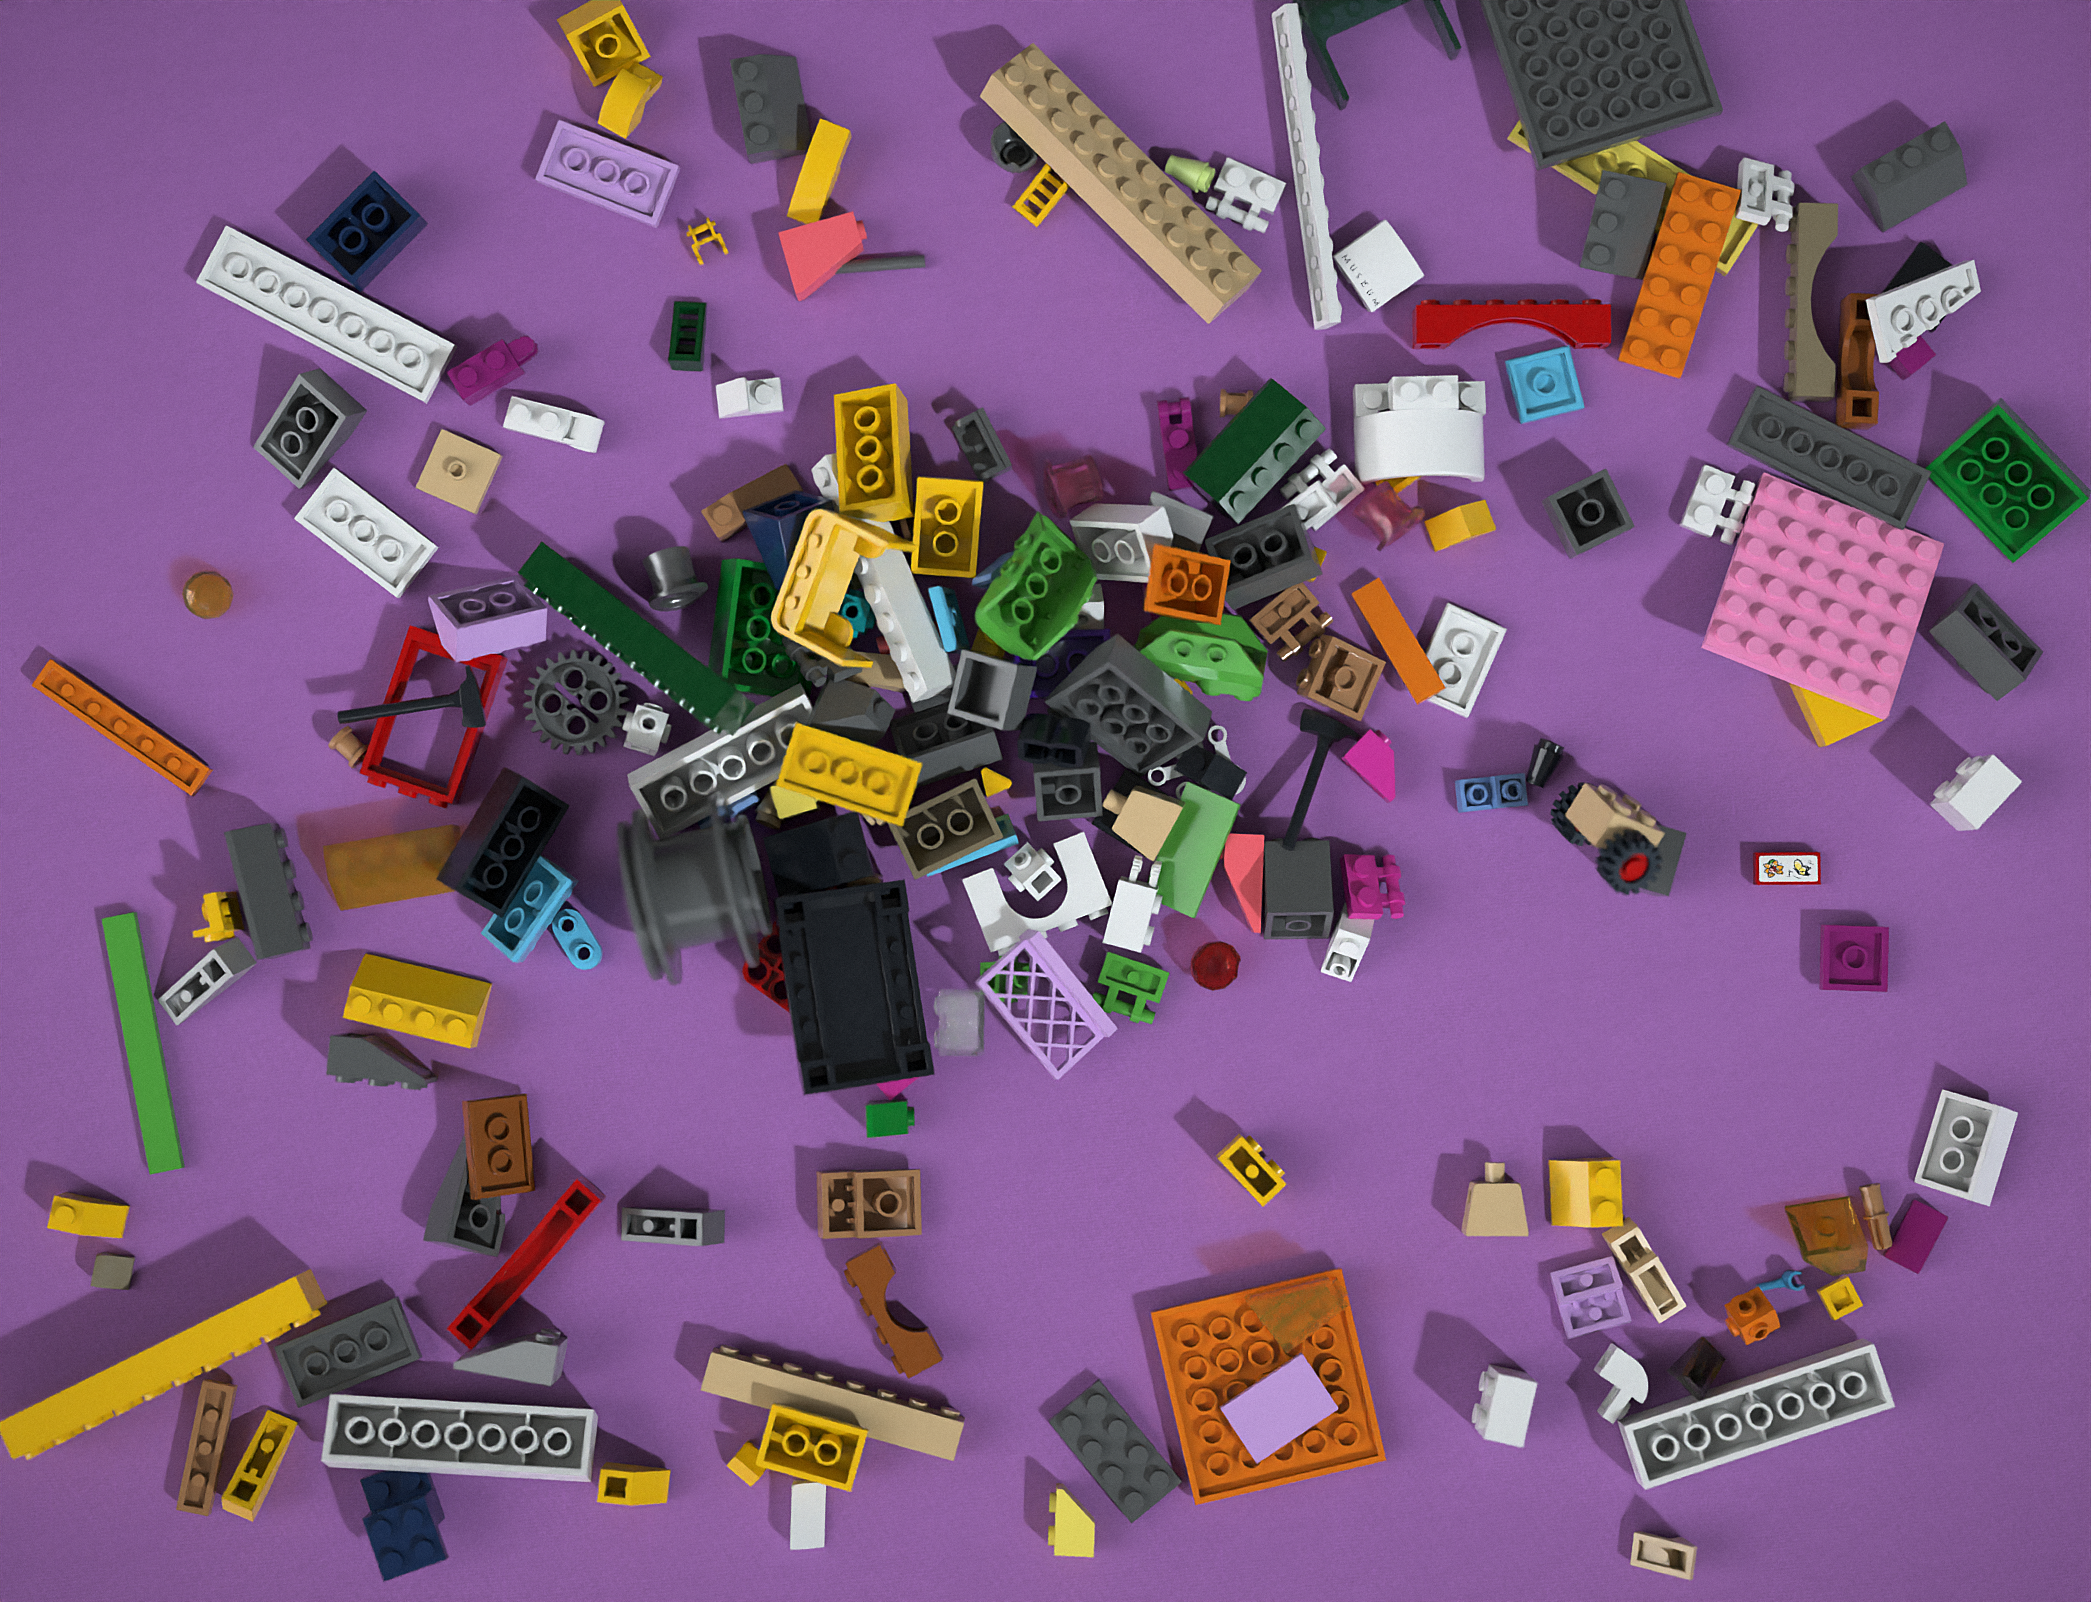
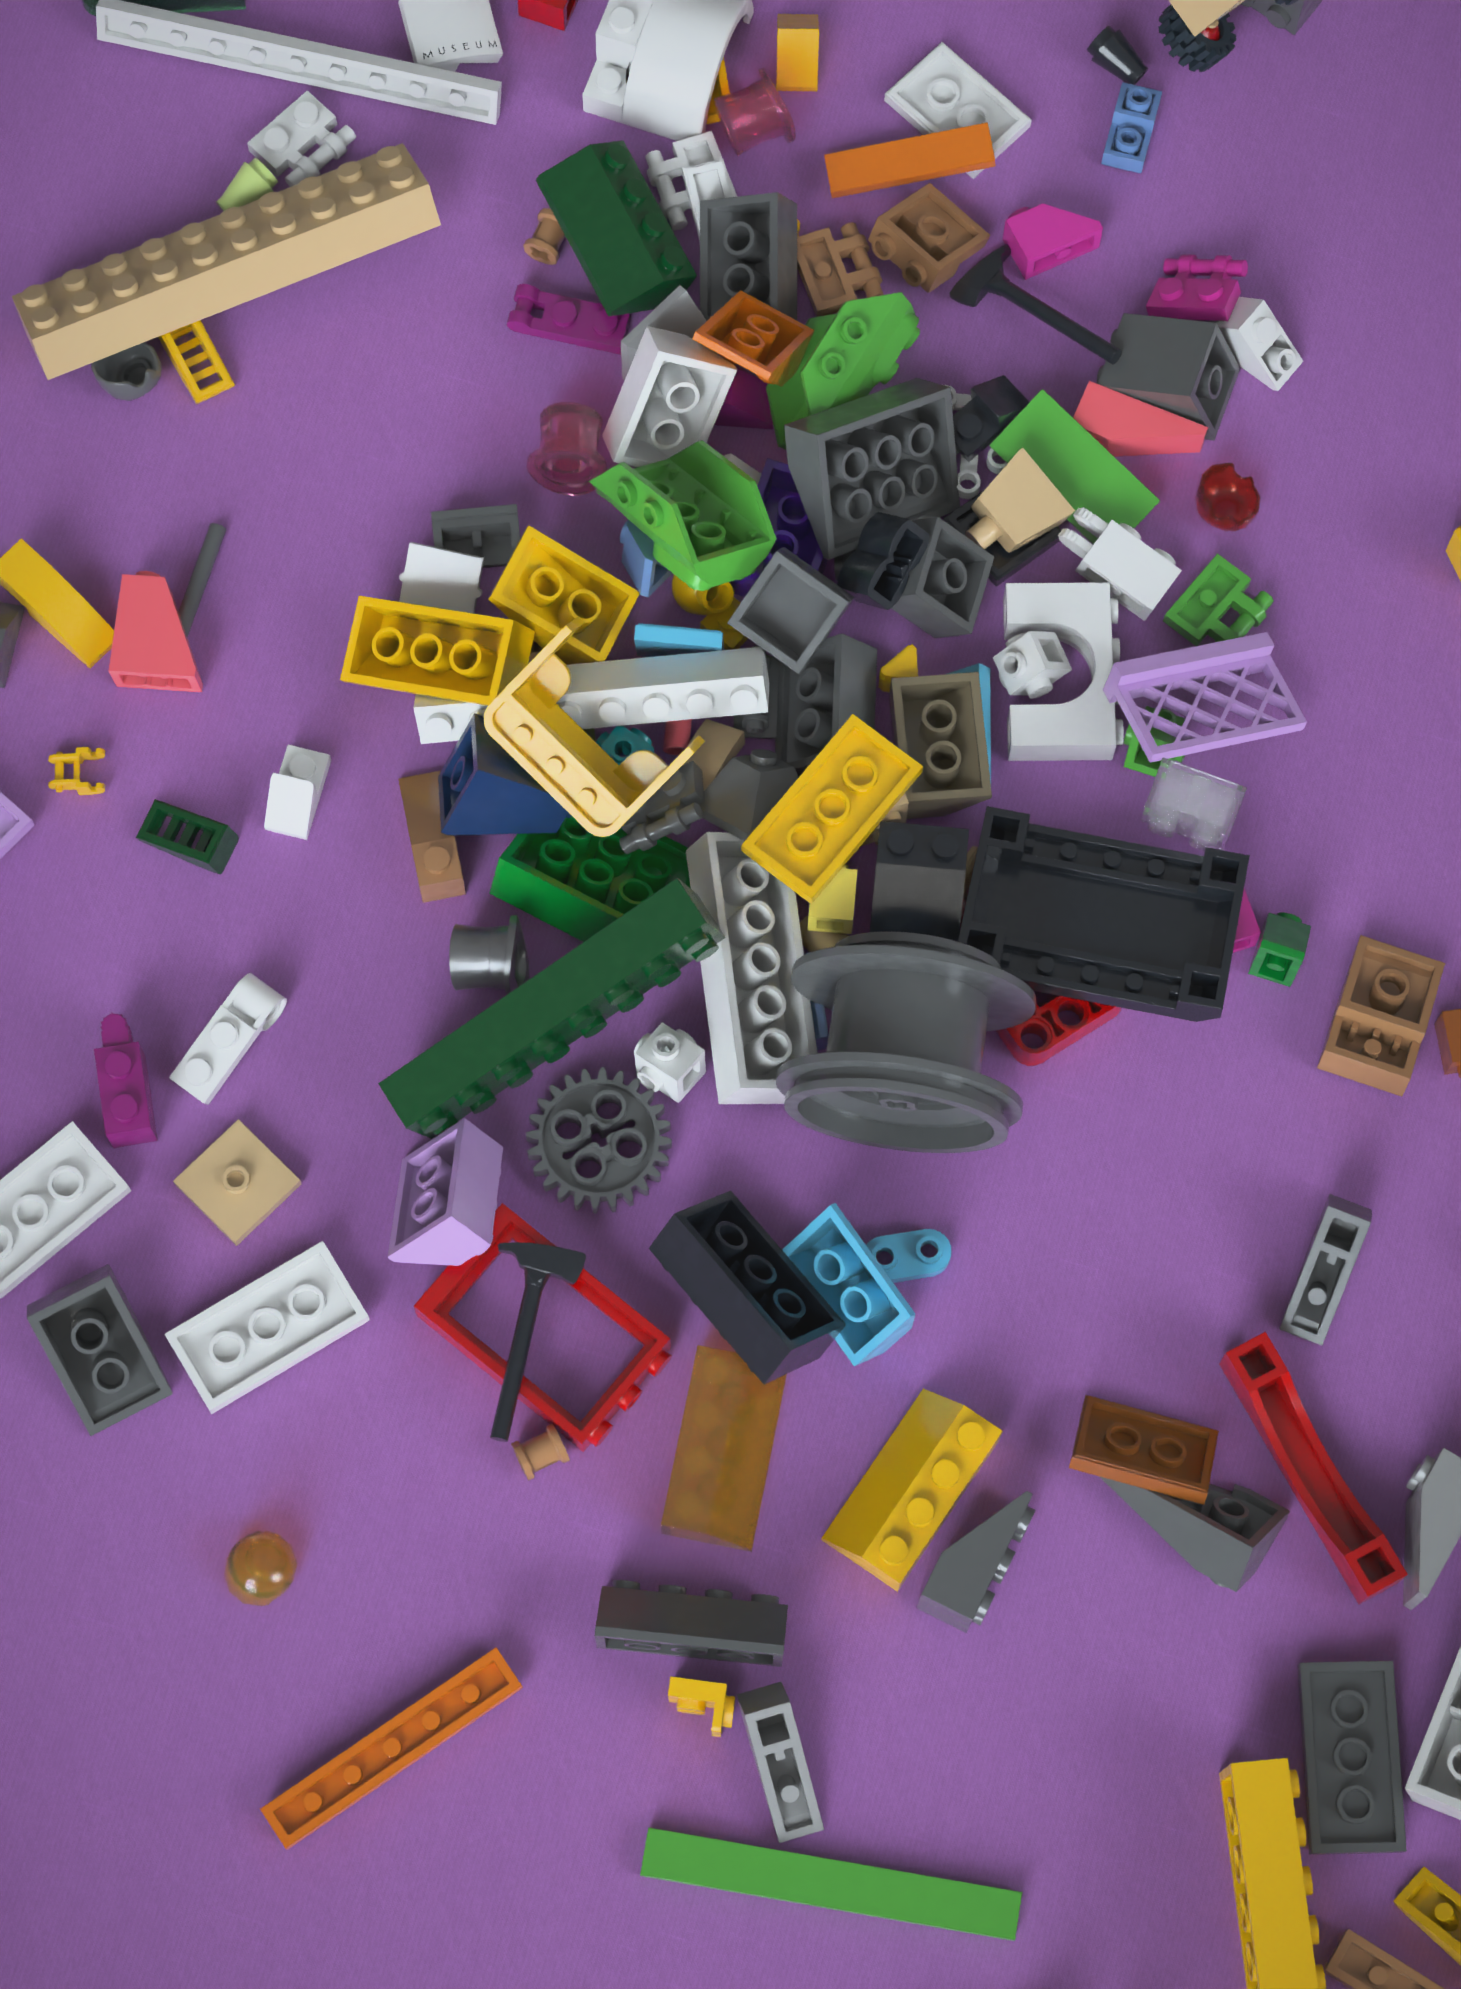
camera: 65 degrees left, 15 degrees down
(936, 435) = (441, 578): none -> white piece

